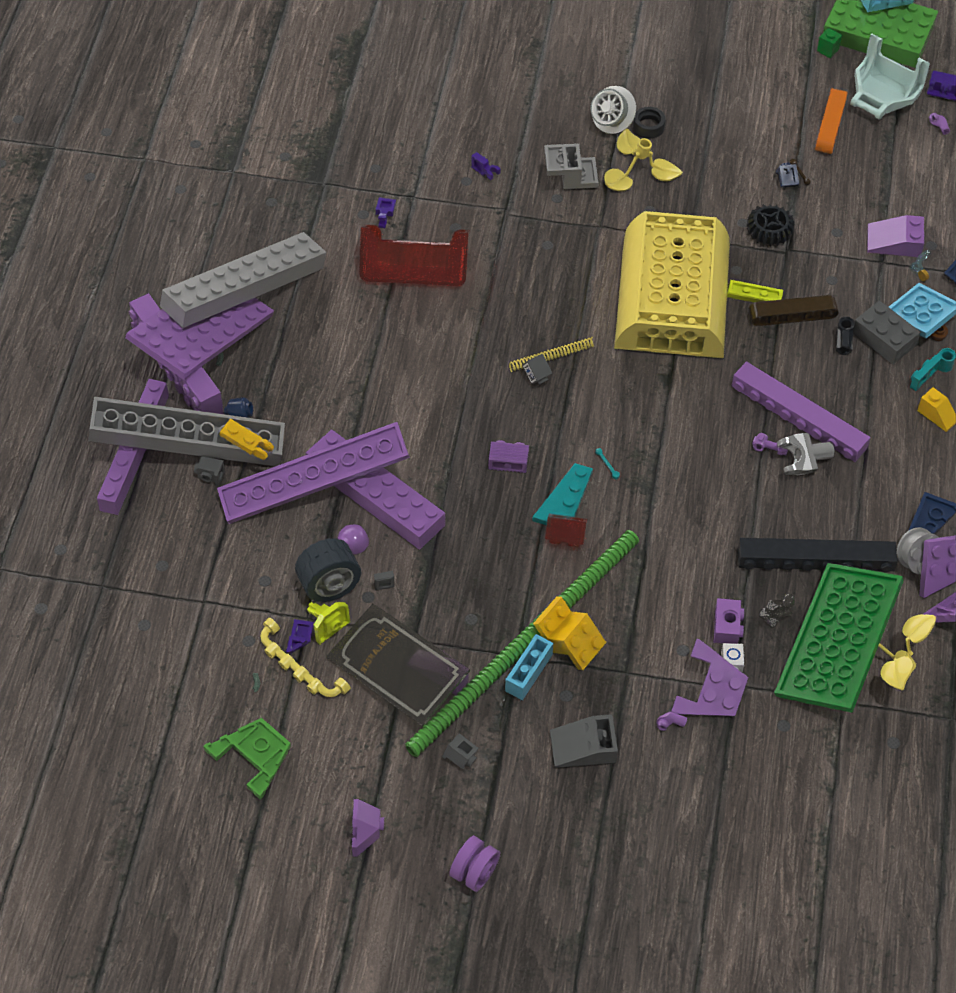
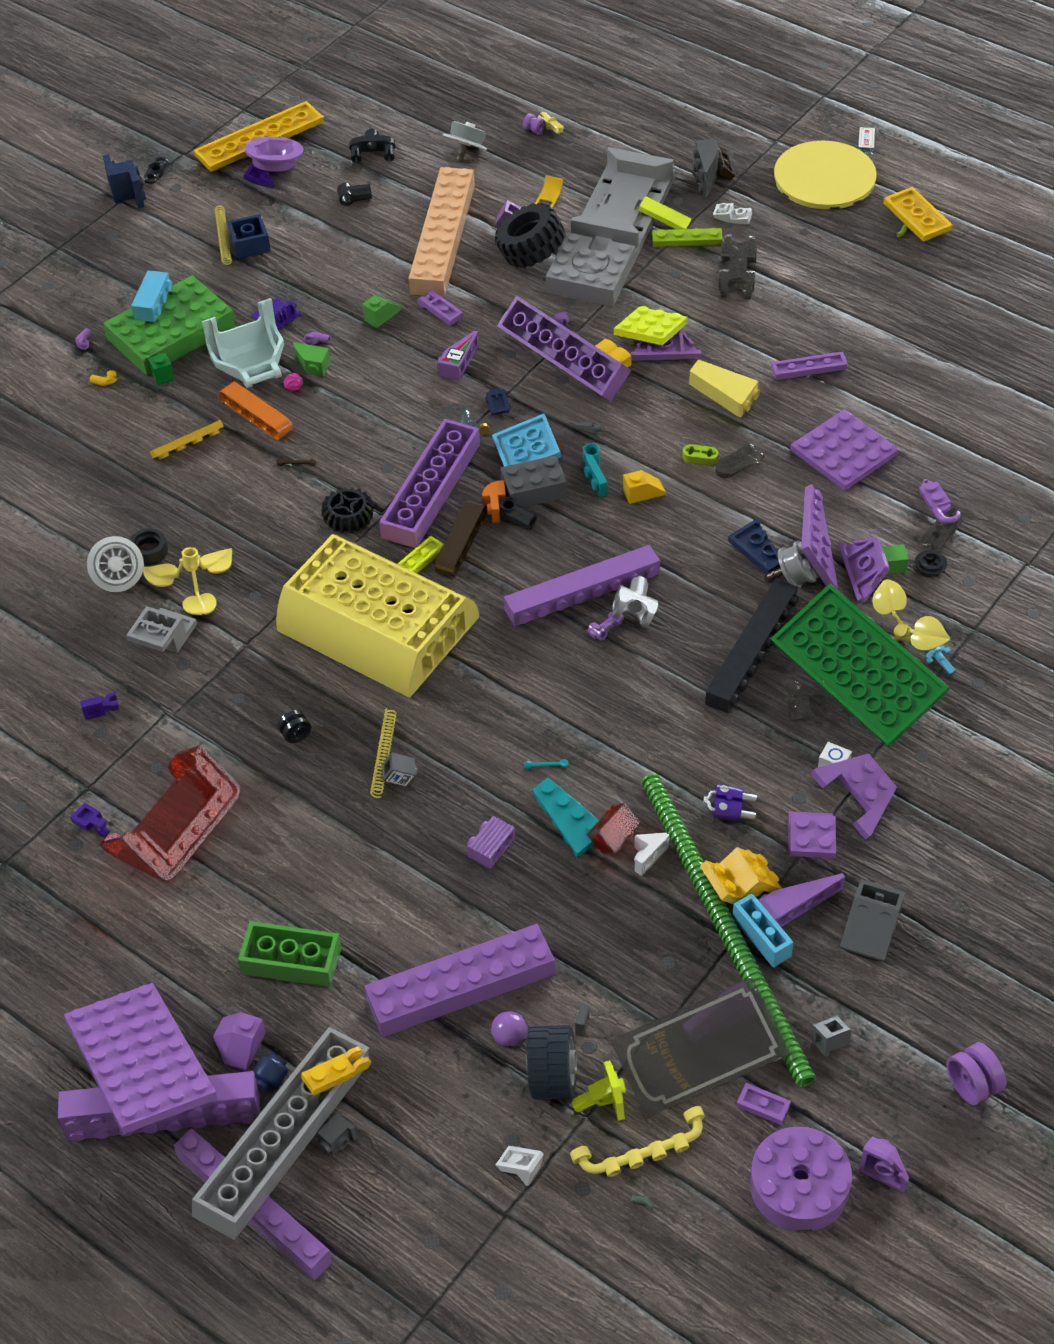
camera: 60 degrees left, 5 degrees down
(242, 279) = (107, 988): light grey brick -> none
(242, 591) = (521, 1162): none -> white slope
(255, 382) = (239, 1039): none -> medium lavender slope
(260, 746) = (733, 1227): bright green wing -> none
(300, 635) = (605, 1132): dark purple slope -> none
(313, 472) = (415, 1028): medium lavender plate -> none
(320, 756) = (796, 1155): none -> medium lavender brick
(337, 376) = (290, 954): none -> bright green brick
(376, 728) = (763, 1104): none -> medium lavender plate
(537, 287) = (294, 726): none -> black wheel
(565, 565) = (650, 849): none -> white slope
(566, 676) = (795, 900): none -> medium lavender slope
(642, 599) = (728, 803): none -> dark purple piece
(642, 667) = (812, 834): none -> medium lavender bracket
(670, 718) = (875, 841): medium lavender arm -> none
(726, 611) = (790, 745): medium lavender brick -> none
(763, 92) = (179, 444): none -> yellow plate
(788, 175) = (297, 470): bracket -> none
(799, 19) = (104, 381): none -> yellow arm
(834, 263) = (429, 483): none -> medium lavender brick
(848, 308) = (492, 496): none -> orange brick
(878, 130) = (293, 382): none -> dark pink plate
(897, 236) = (424, 423): medium lavender slope -> none
(902, 695) = (936, 653): none -> medium azure piece
(913, 130) = (312, 358): none -> bright green slope

